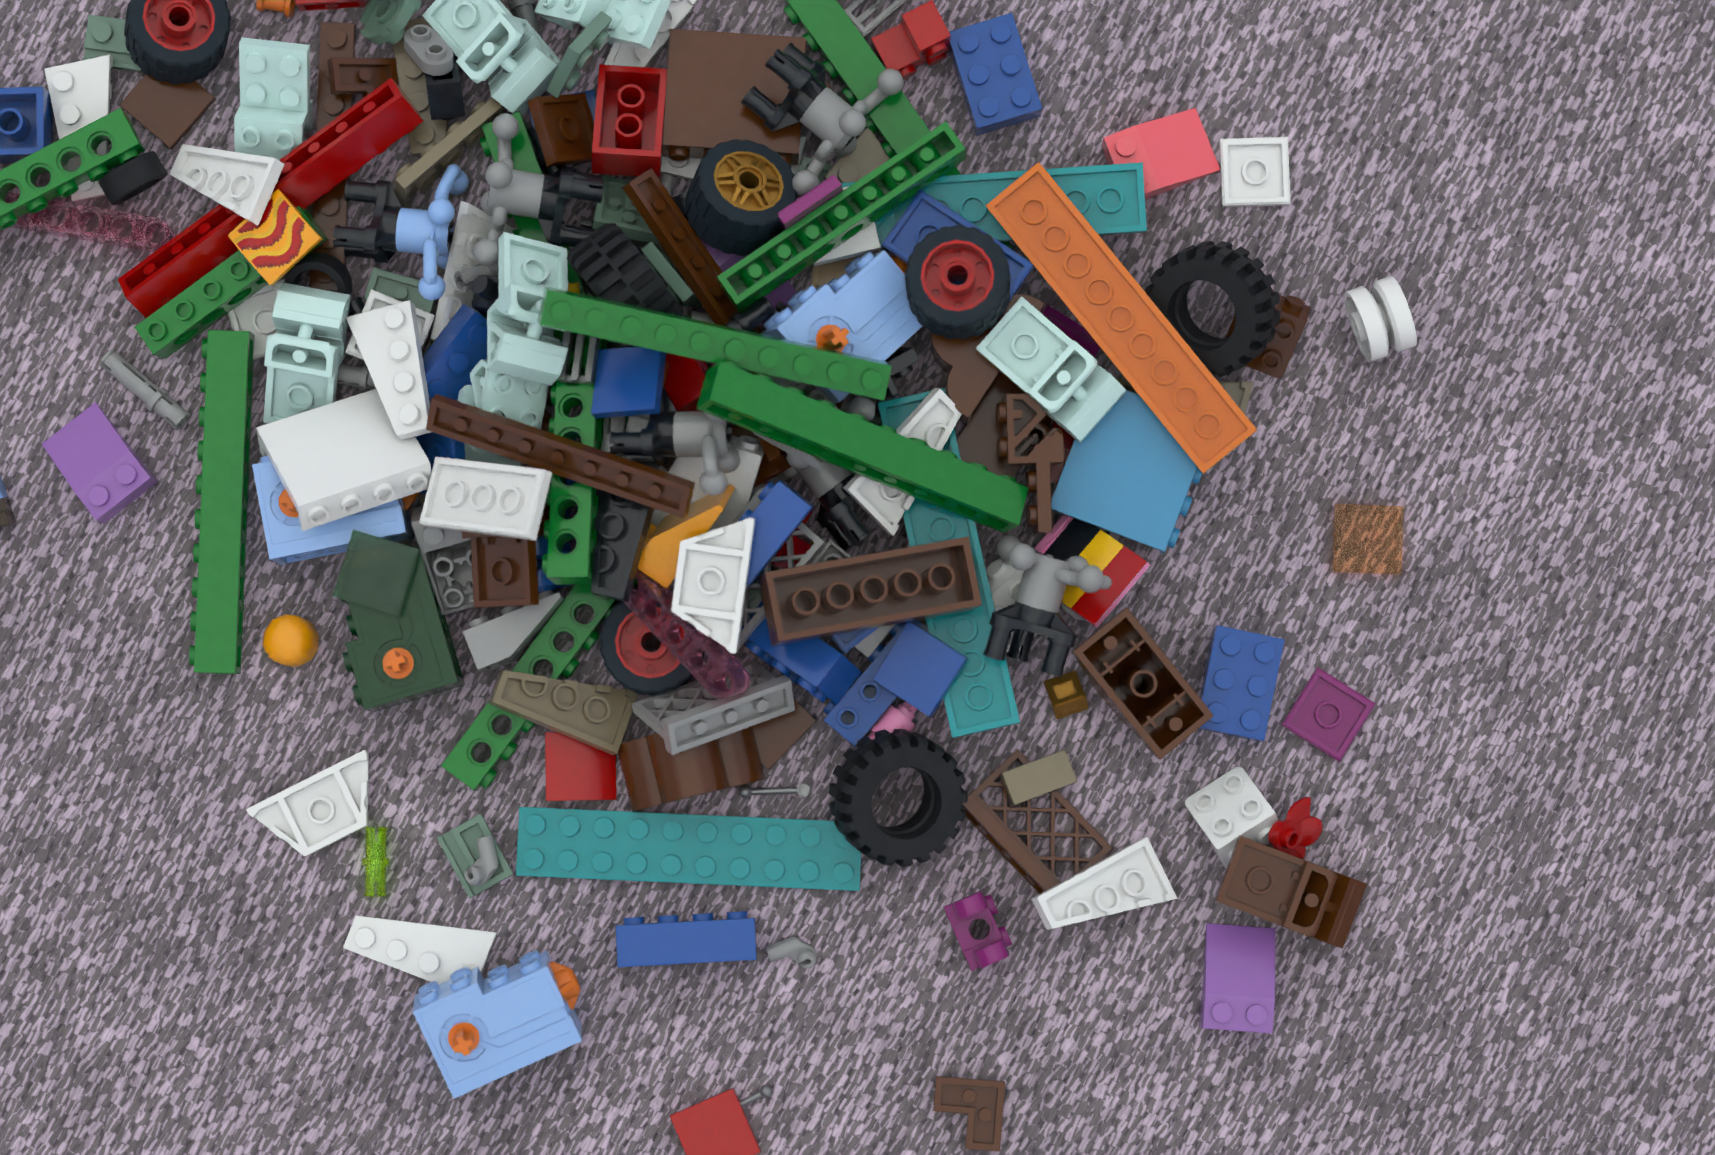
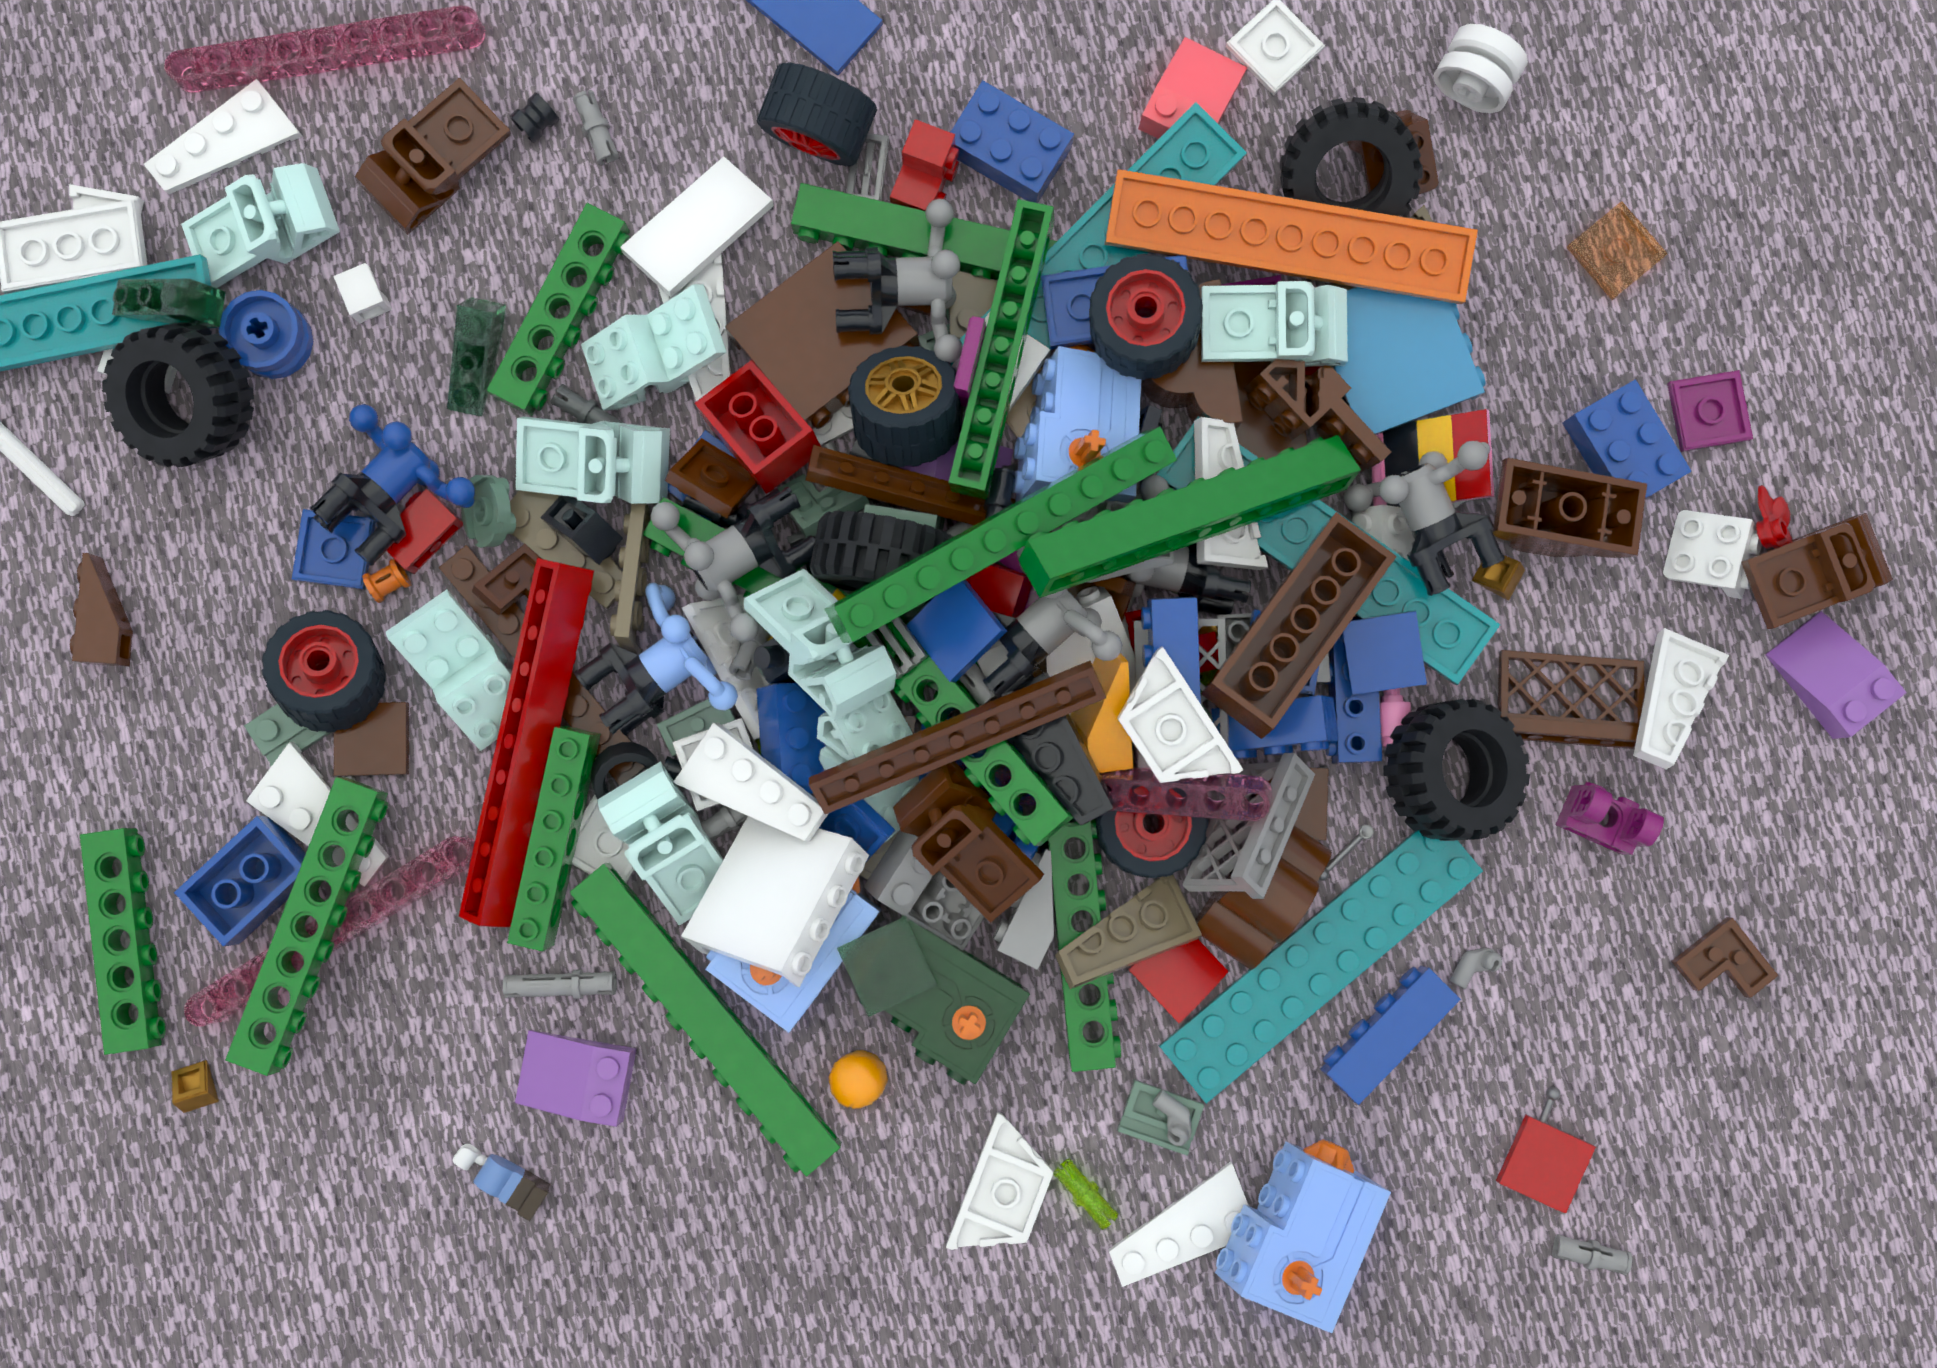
camera: 50 degrees left, 0 degrees up
(132, 178) = (397, 824): black tyre -> none
(229, 178) = (477, 755): white wing -> none
(277, 241) = (558, 769): slope -> none
(428, 50) = (546, 511): light grey plate -> none
(485, 498) = (927, 826): white tile -> none
(579, 54) = (674, 406): sand green plate -> none
(1038, 777) = (1541, 657): dark tan tile -> none

